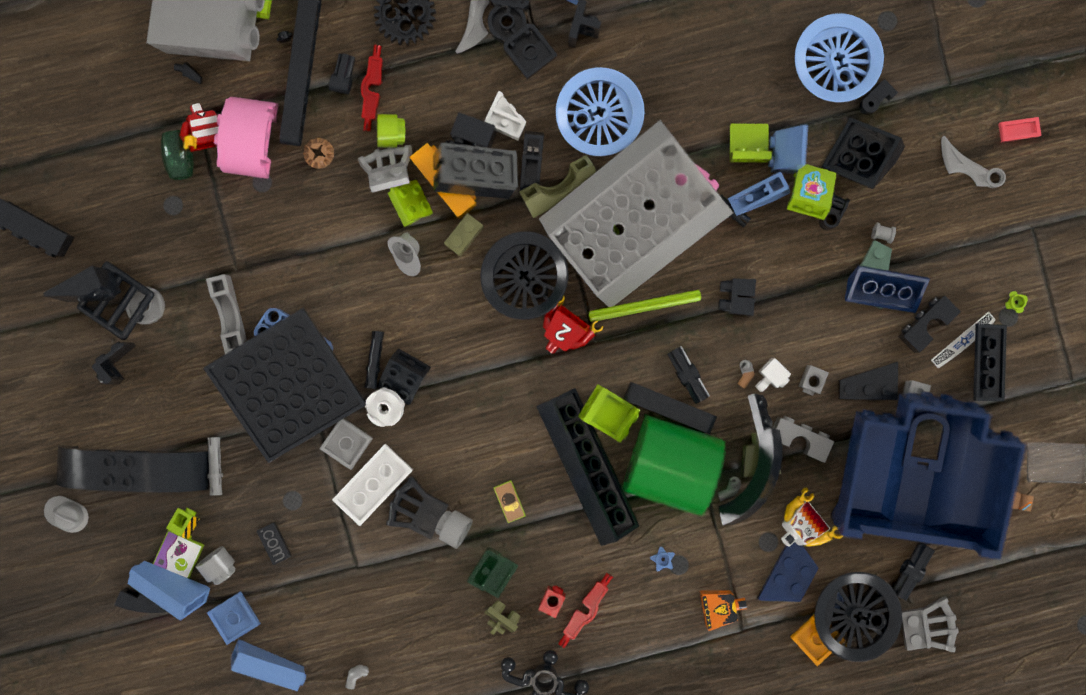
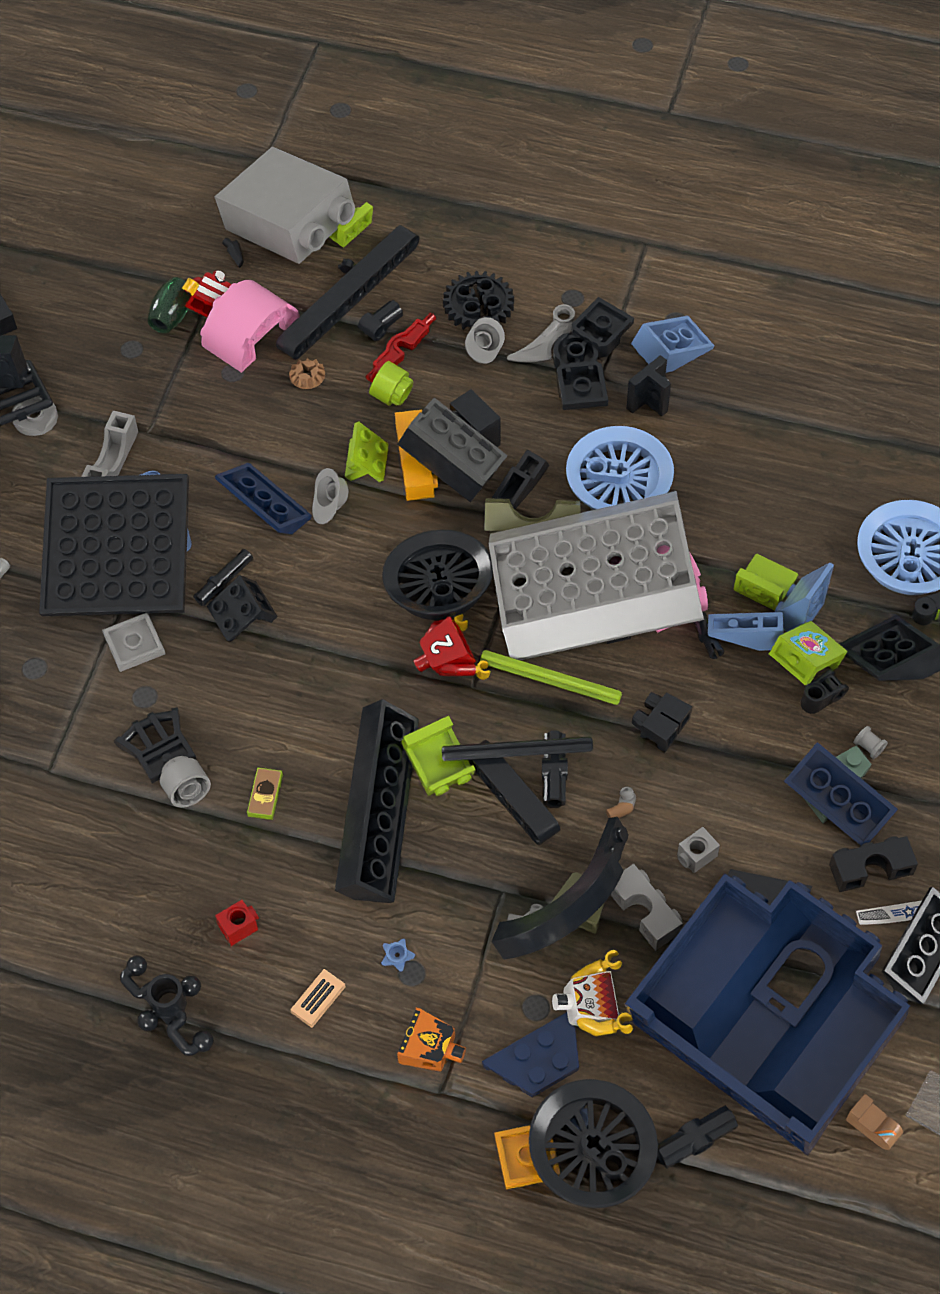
camera: 30 degrees right, 30 degrees down
(359, 280) = (264, 498): none -> dark blue slope
(372, 484) = (129, 694): white plate -> none
(390, 175) = (366, 410): light grey plate -> none
(392, 400) = (208, 633): white plate -> none
(434, 52) = (484, 340): none -> light grey piece
(464, 235) = (400, 510): olive brick -> none
(492, 572) = (191, 849): clear green brick -> none
(505, 118) = (518, 433): white wing -> none
(509, 623) = (161, 909): olive hips -> none
(579, 618) = (254, 964): piece -> none
(632, 617) = (318, 998): none -> light nougat tile
(660, 380) = (517, 748): none -> black axle
(674, 465) = (471, 834): green brick -> none
(774, 374) = (653, 818): white brick -> none
(916, 627) = (661, 1217): light grey plate -> none

